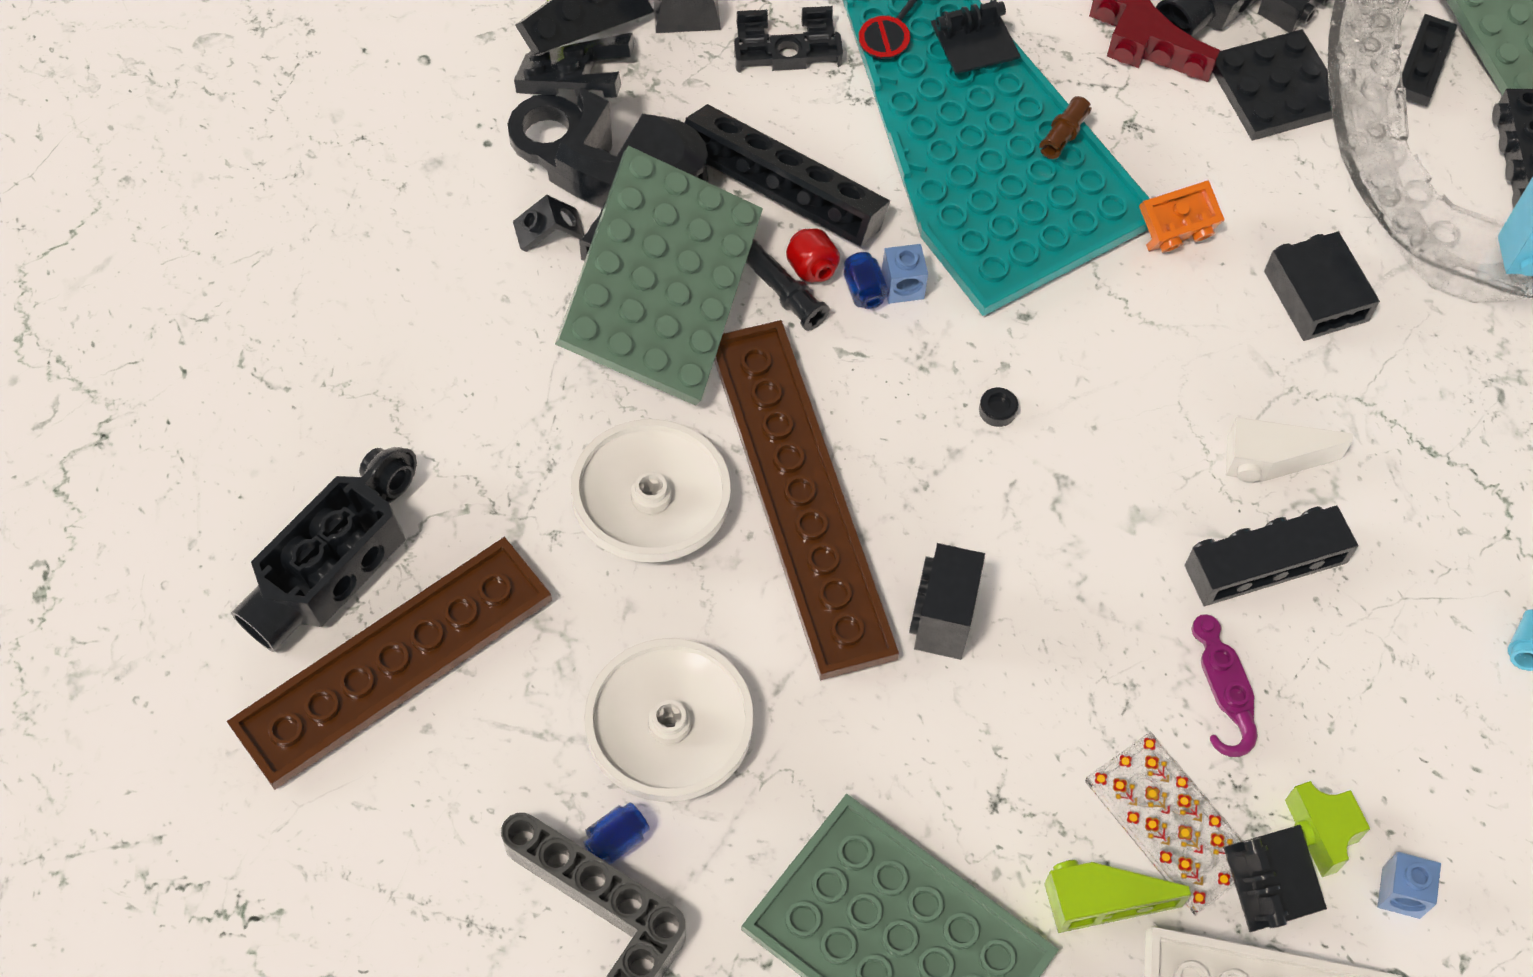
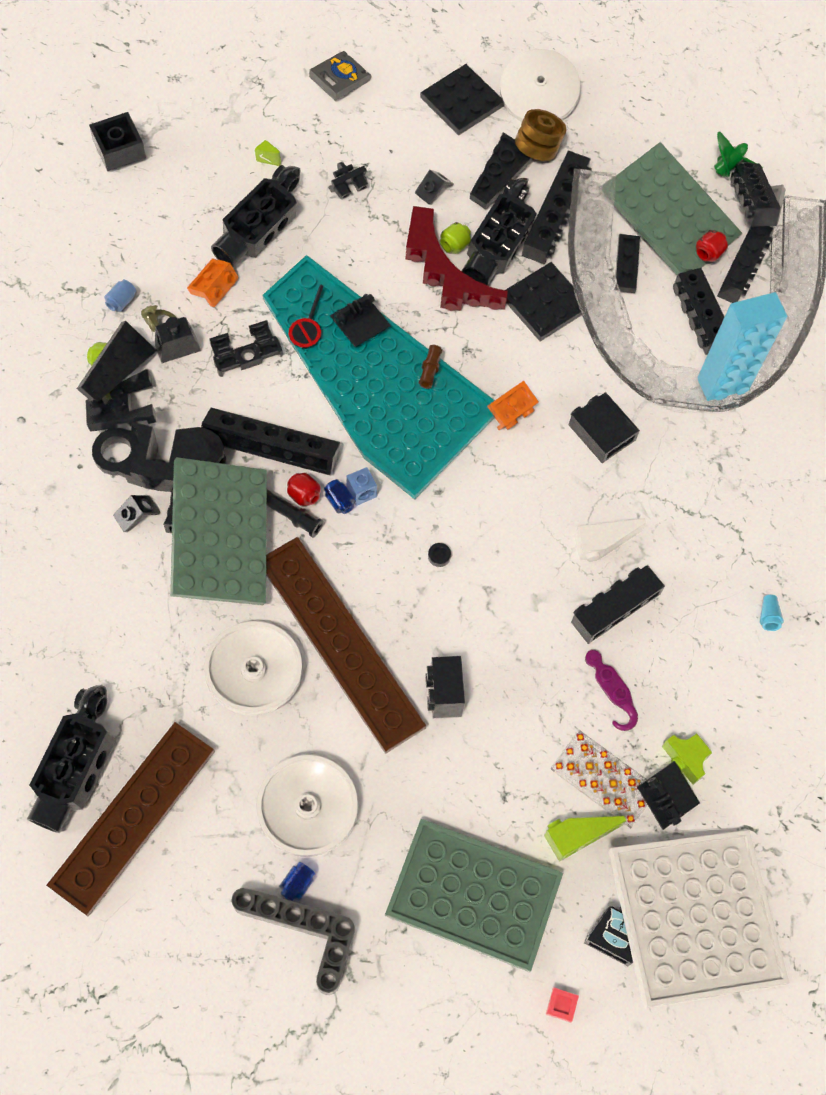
camera: 20 degrees left, 5 degrees up
(1409, 885) = (740, 777): medium blue brick -> none

